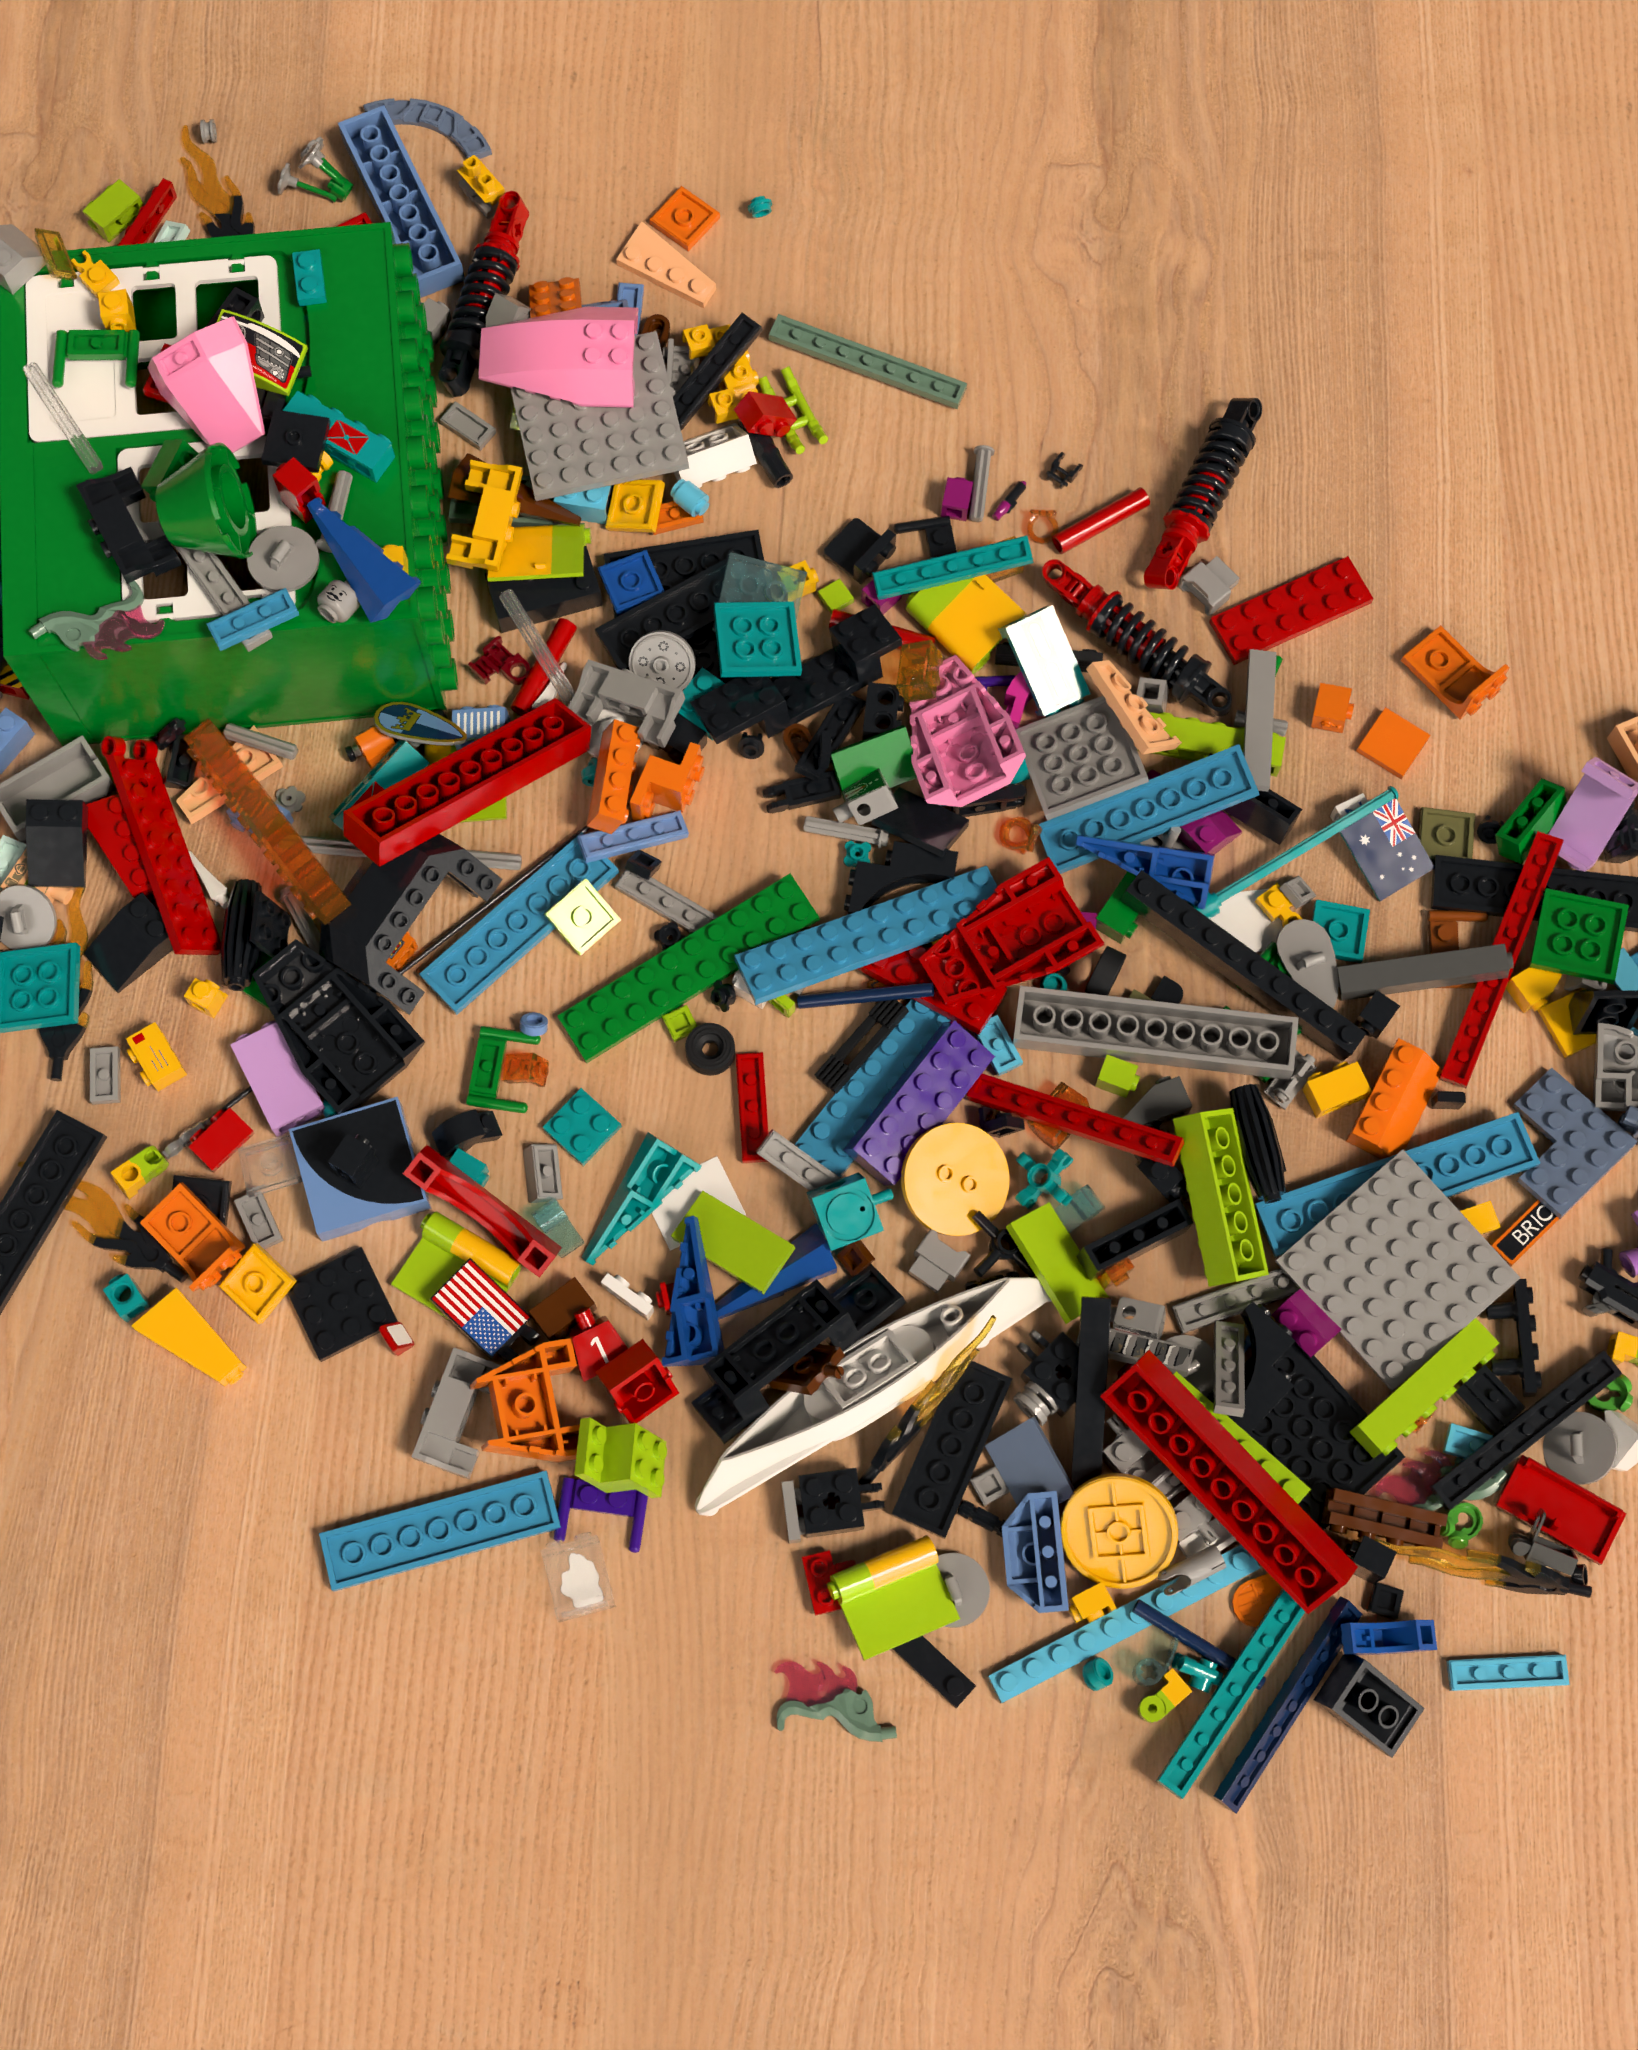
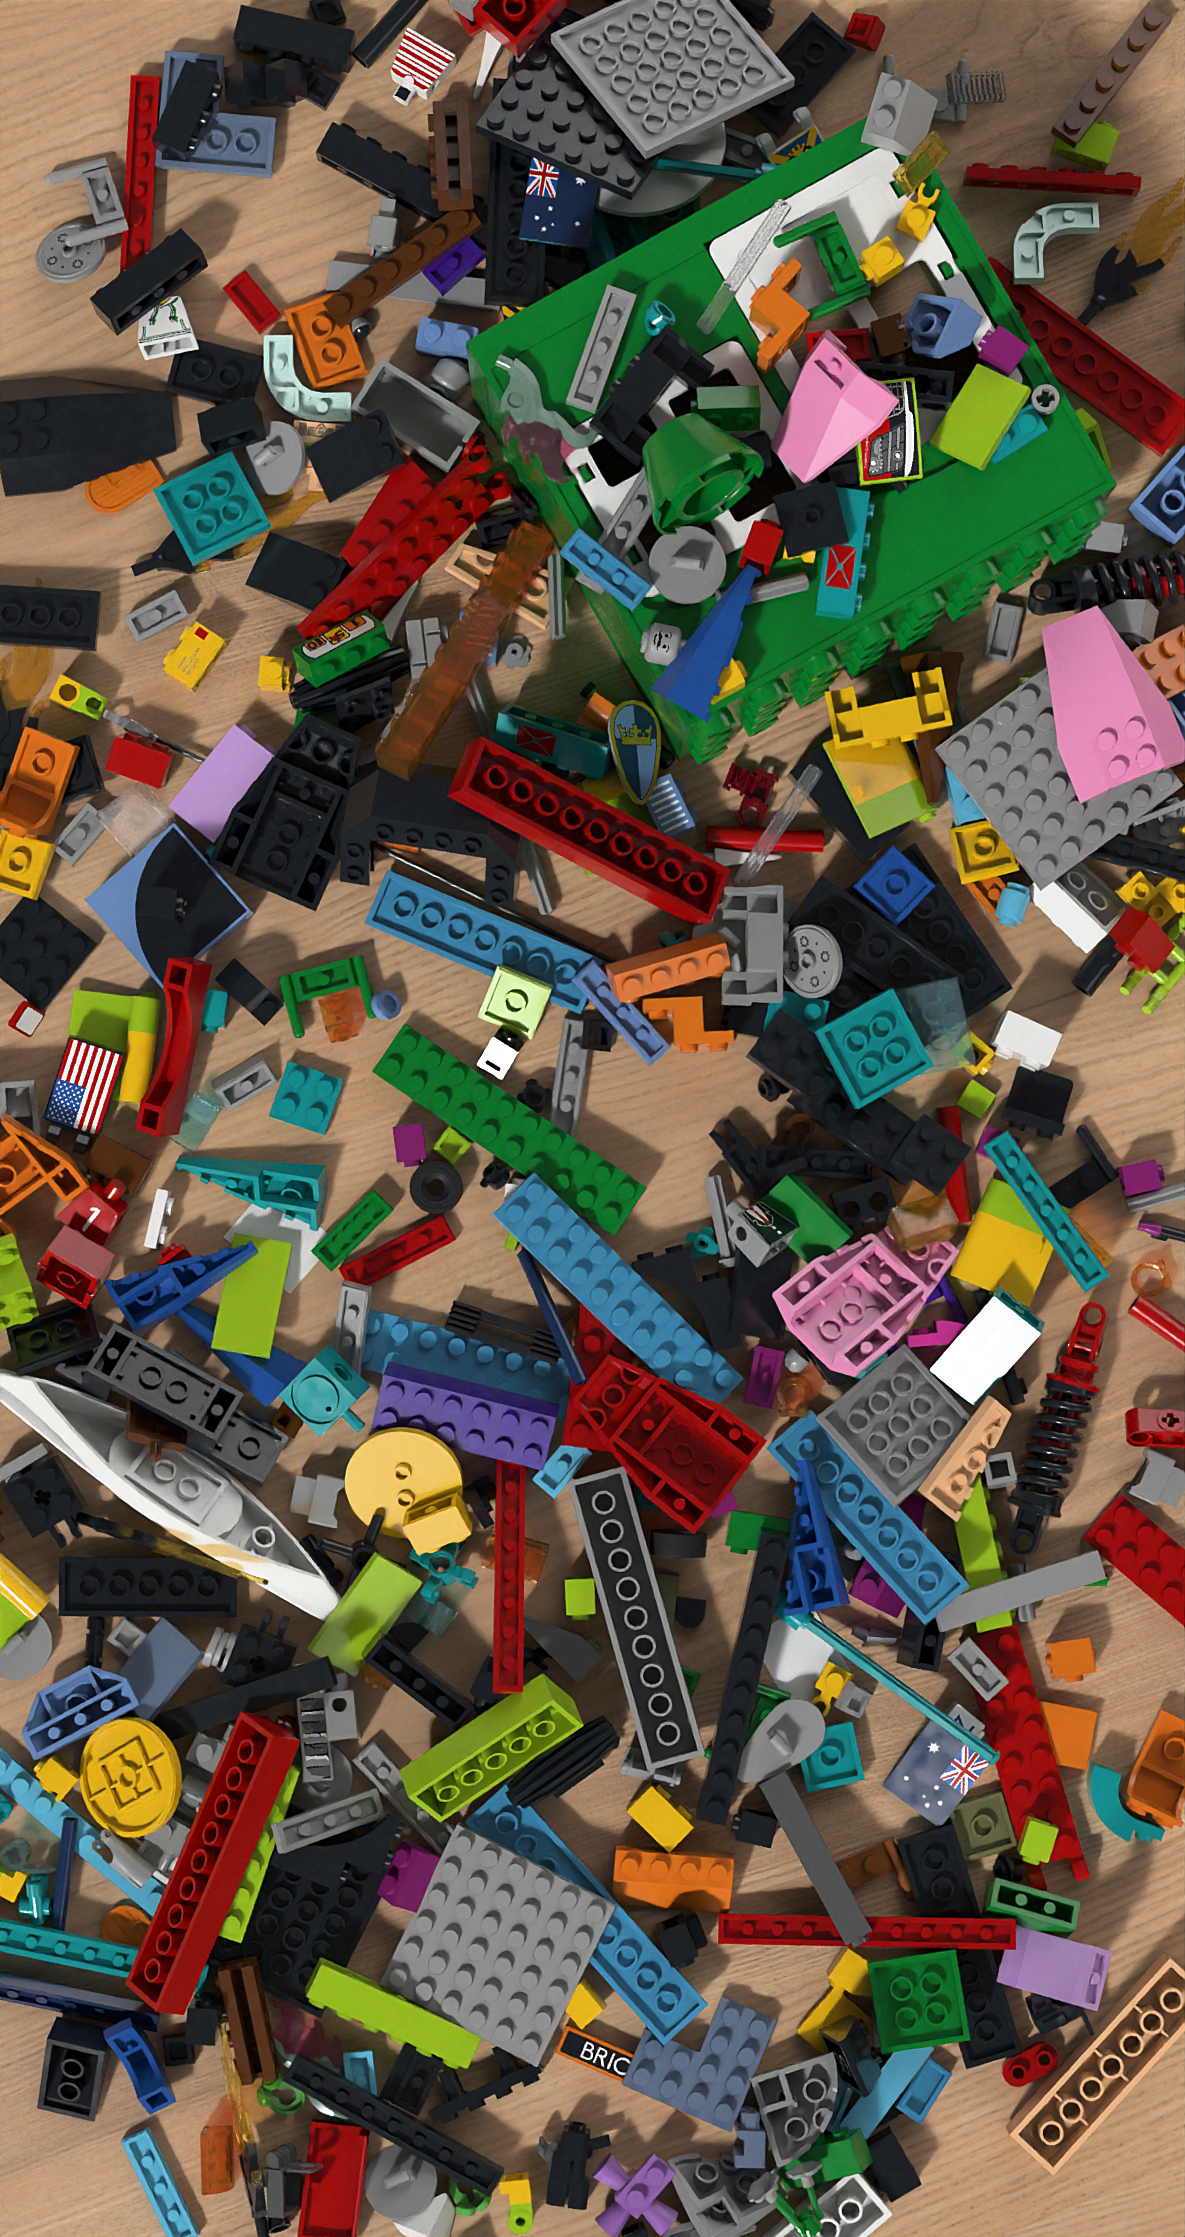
camera: 60 degrees right, 15 degrees up
(32, 749) = (449, 378): none -> light grey head
(65, 493) = (660, 316): none -> teal tile
(69, 550) = (601, 349): none -> light grey plate
(73, 169) = (1111, 75): none -> reddish brown plate
(97, 750) = (476, 439): none -> red piece
(115, 400) = (778, 315): none -> orange bracket
(178, 328) = (888, 339): none -> reddish brown brick
(190, 288) = (940, 325): none -> medium blue slope
(212, 925) = (340, 648): none -> green brick
(238, 255) = (1002, 350): none -> magenta brick
(244, 862) = (423, 640): none -> light grey brick
(282, 290) = (980, 416): none -> lime tile
(291, 235) = (1052, 404): none -> light grey bush
(620, 948) = (500, 1053): none -> bracket
(663, 1054) = (410, 1144): none -> magenta brick
(691, 1432) = (53, 1337): none -> black tile
(715, 1135) = (352, 1230): none -> green plate
(805, 533) = (1024, 1040): none -> white brick
(989, 820) = (795, 1360): none -> light grey hinge
(992, 851) = (763, 1377): none -> magenta plate
(1004, 1162) = (438, 1524): none -> yellow brick
(1089, 1233) = (409, 1634): none -> black tile
(1250, 856) = (874, 1636): none -> light grey bar
(1312, 778) = (978, 1669): none -> light grey plate
(1419, 779) = (1026, 1755): none -> red hinge
(1451, 1114) = (677, 1941): none -> black brick
(1469, 730) = (1104, 1798): none -> teal arch
(1476, 789) = (1037, 1840): none -> lime brick
(1500, 1607) = (217, 2159): none -> clear orange brick

